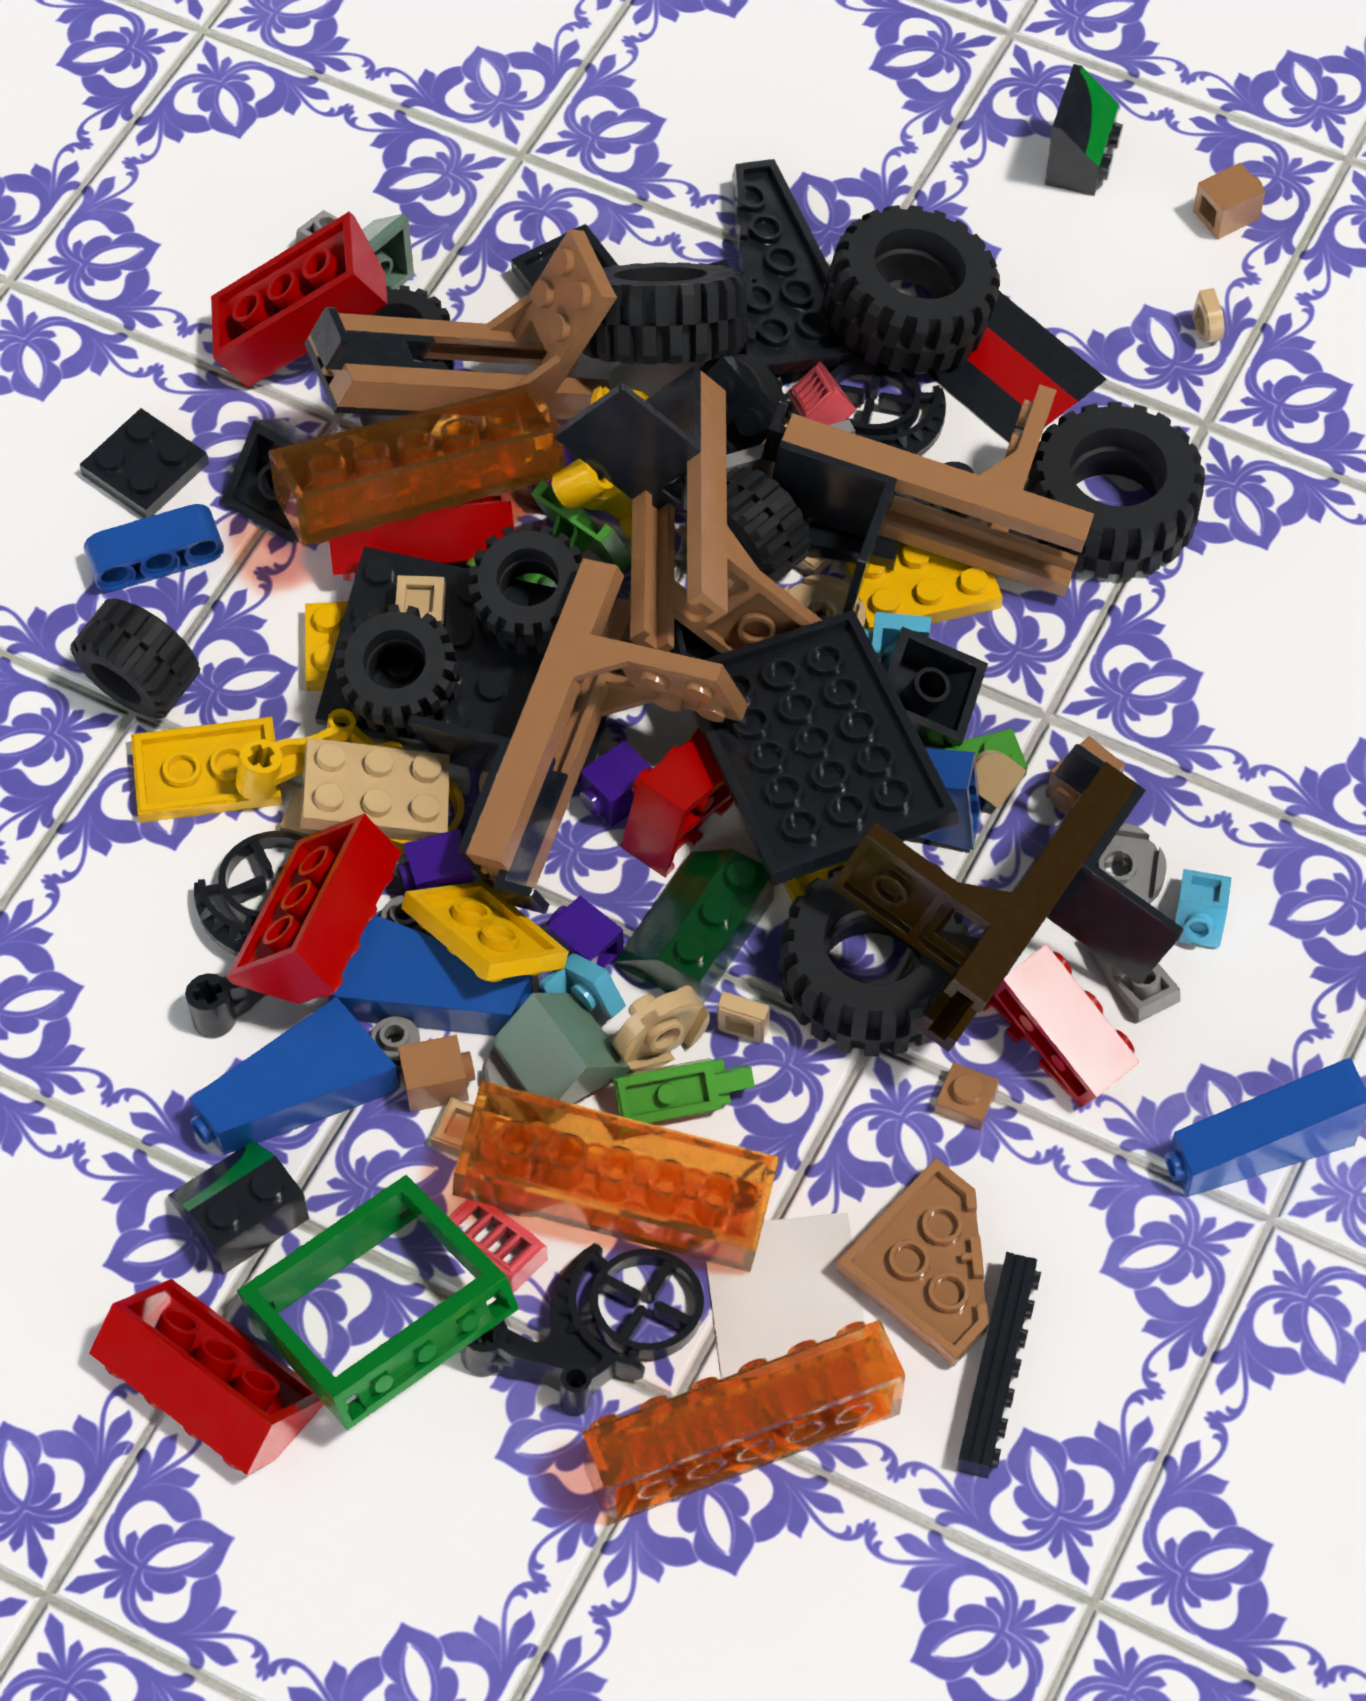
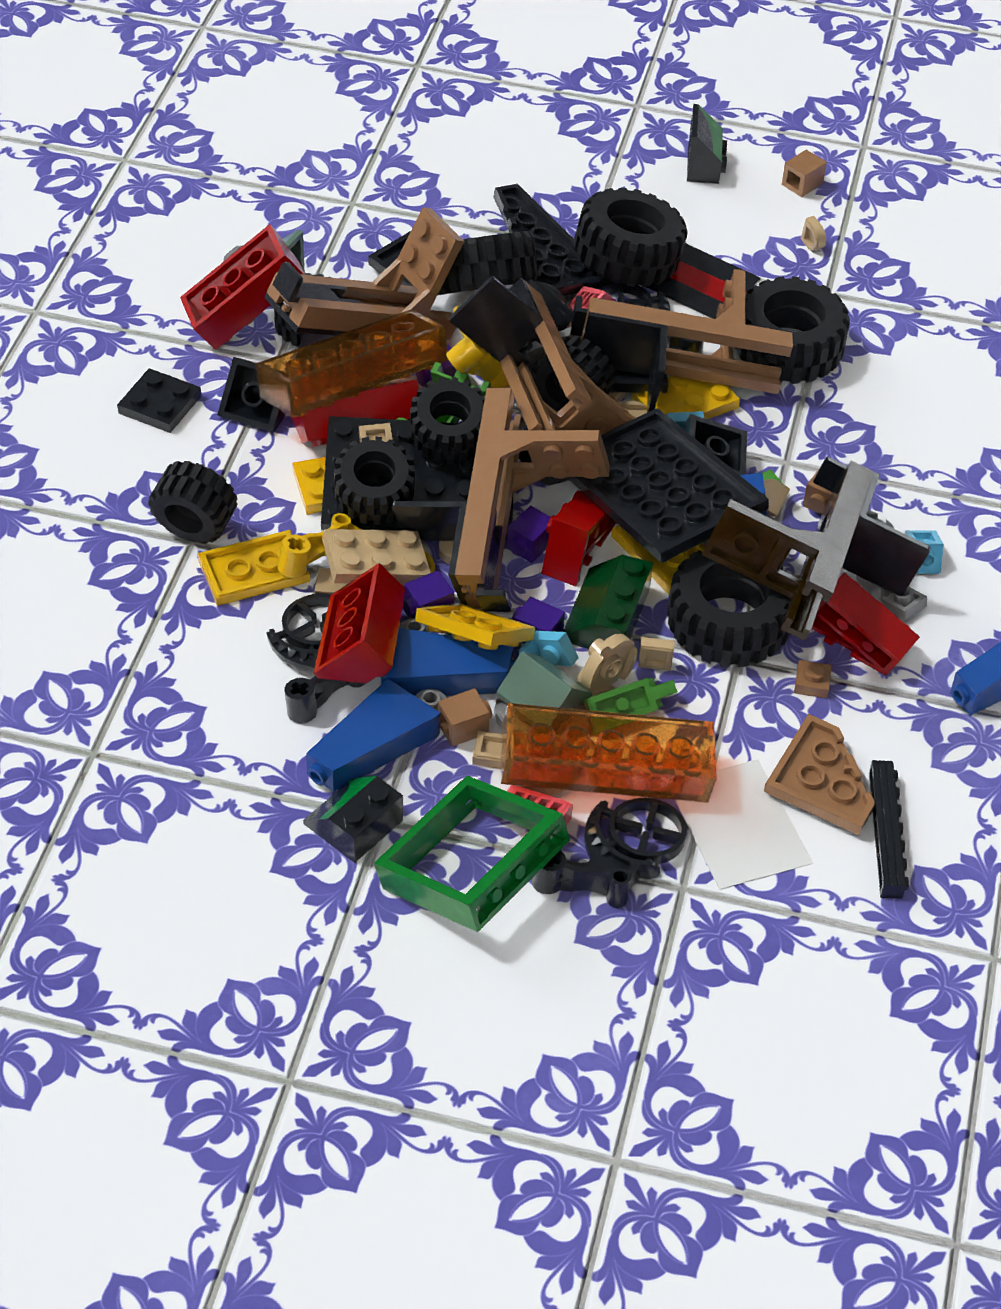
camera: 15 degrees left, 10 degrees down
(153, 547) = (181, 442): blue beam -> none
(205, 1375) = (363, 923): red slope -> none
(742, 1420) = (738, 884): clear orange brick -> none

